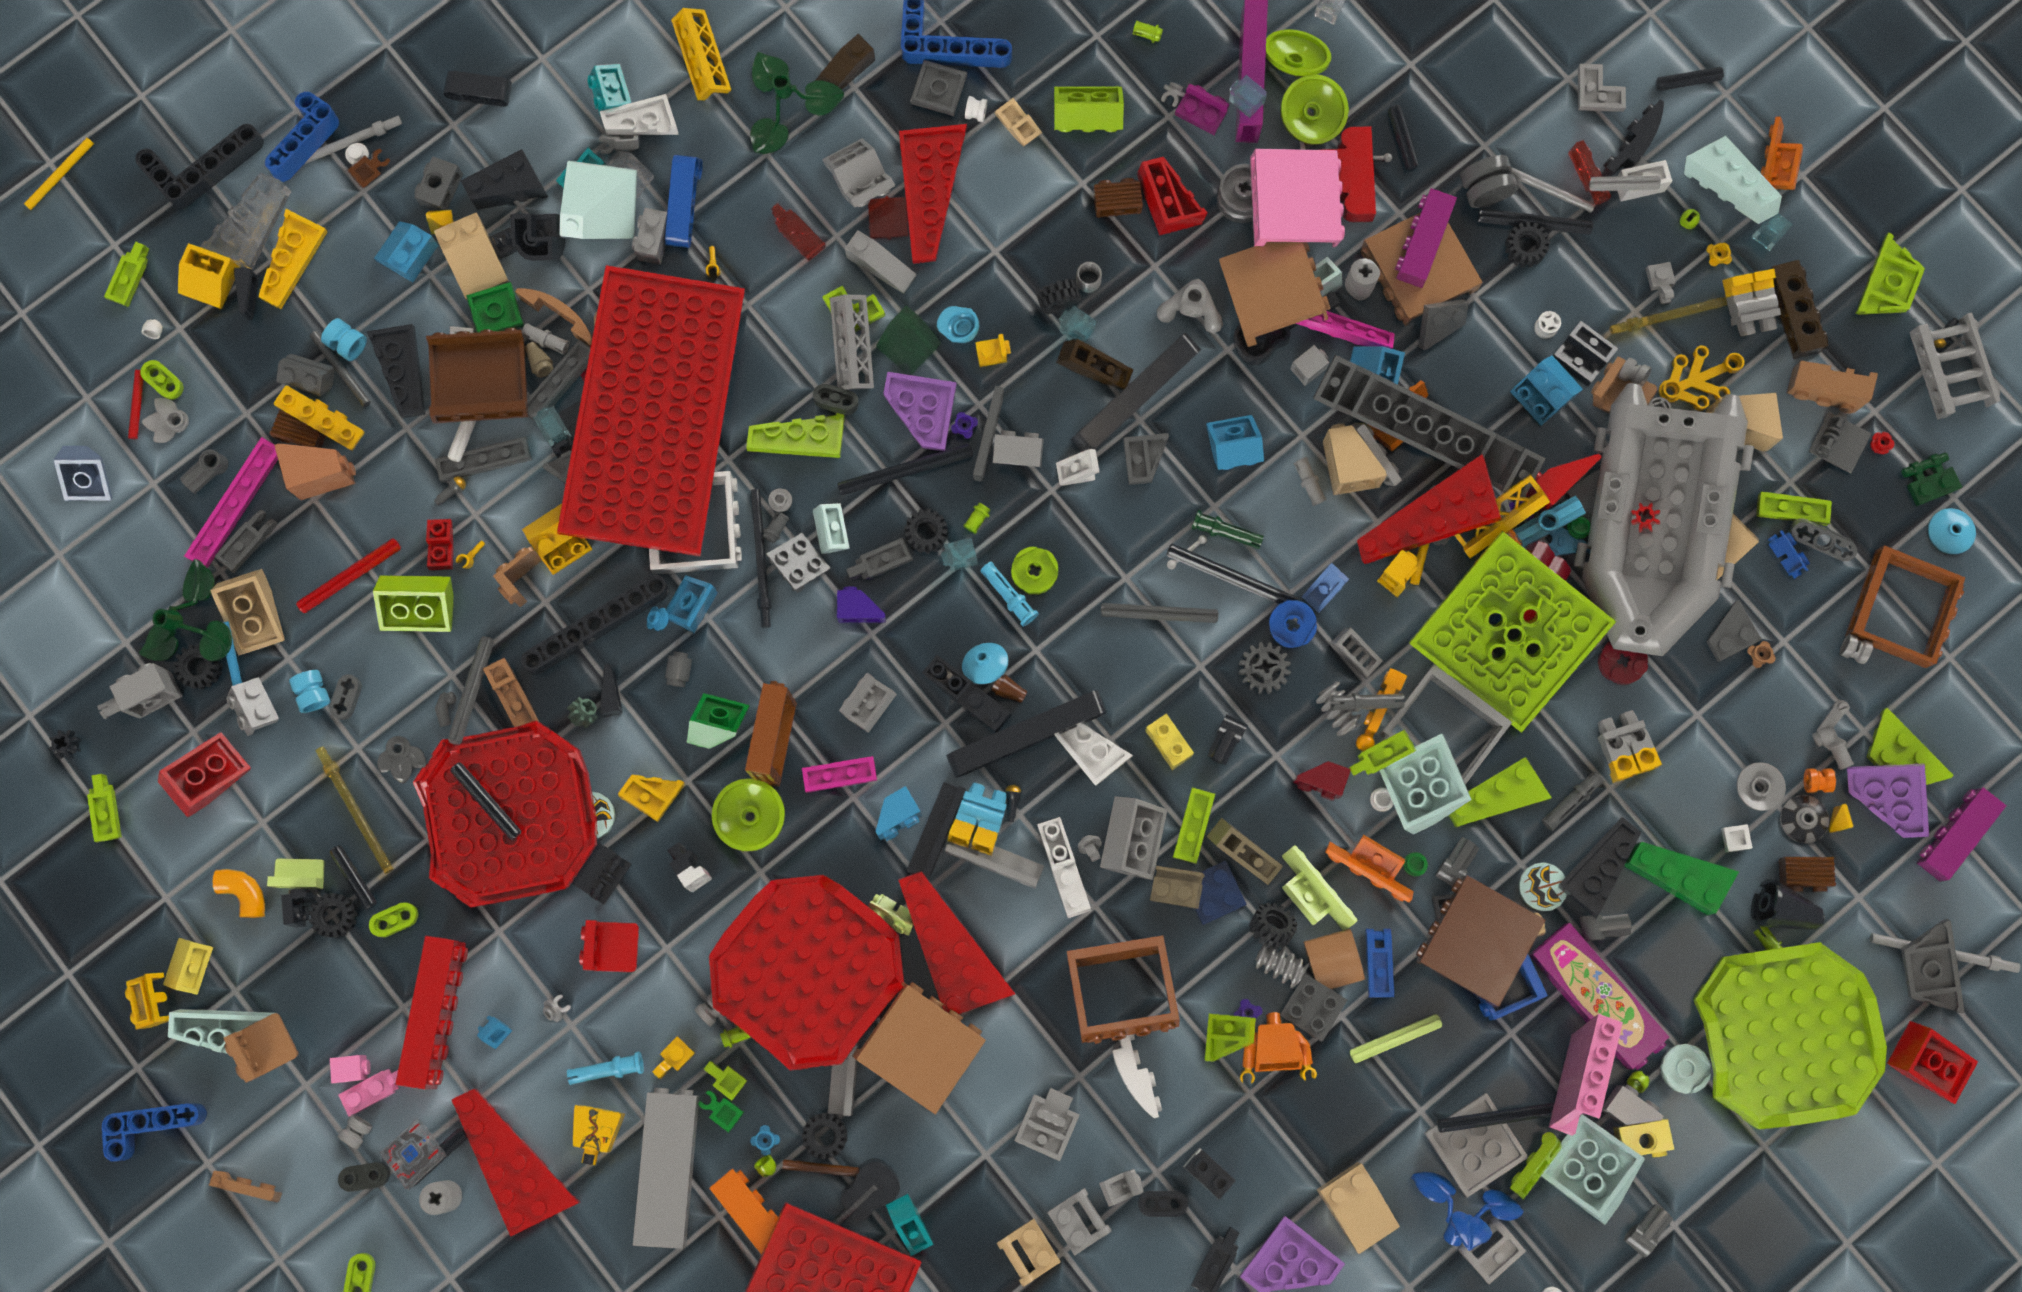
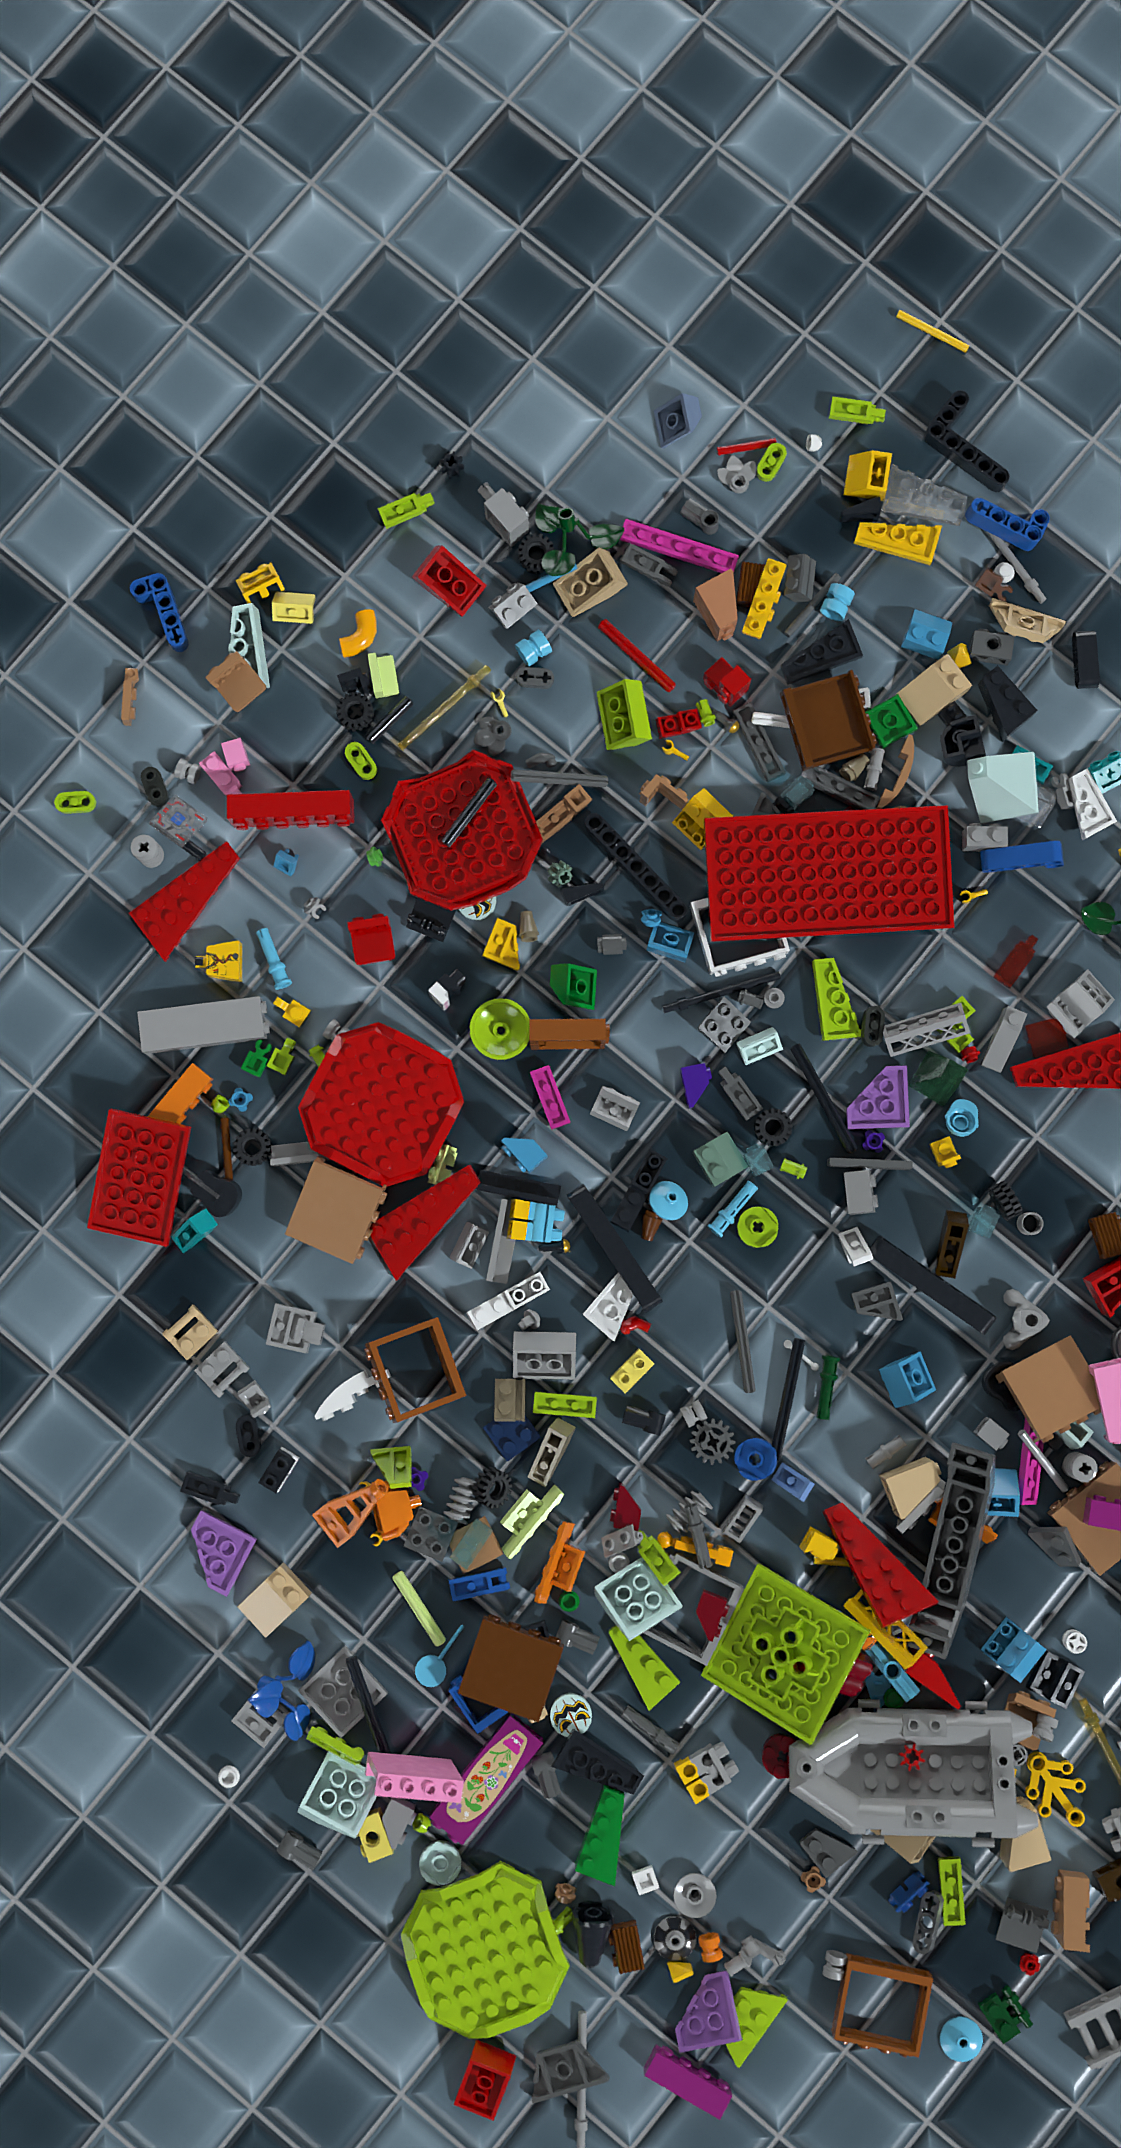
camera: 80 degrees right, 5 degrees up
(363, 742) = (500, 702): none -> light yellow hand
(405, 479) = (727, 681): none -> red brick
(418, 143) = (1025, 622): none -> tan wing
(435, 511) = (705, 712): none -> lime pin
(512, 924) = (374, 856): none -> bright green plate
(637, 761) = (528, 928): none -> dark tan cone
(889, 302) = (969, 1054): none -> red plate
(950, 597) = (720, 1159): none -> sand green slope
(990, 901) = (469, 1245): none -> light grey slope
(1116, 729) = (633, 1323): none -> red arm
(1230, 682) = (689, 1415): none -> light grey wheel
(1283, 1119) = (334, 1524): none -> orange plate
(1333, 961) = (471, 1544): none -> clear light blue slope
(1349, 315) = (1043, 1460): none -> light grey bar
(1358, 791) = (620, 1540): none -> light grey hinge
(1453, 704) = (709, 1611): none -> dark red slope
(1467, 1037) = (431, 1669): none -> medium azure piece
(1739, 931) = (565, 1893): none -> medium nougat plate

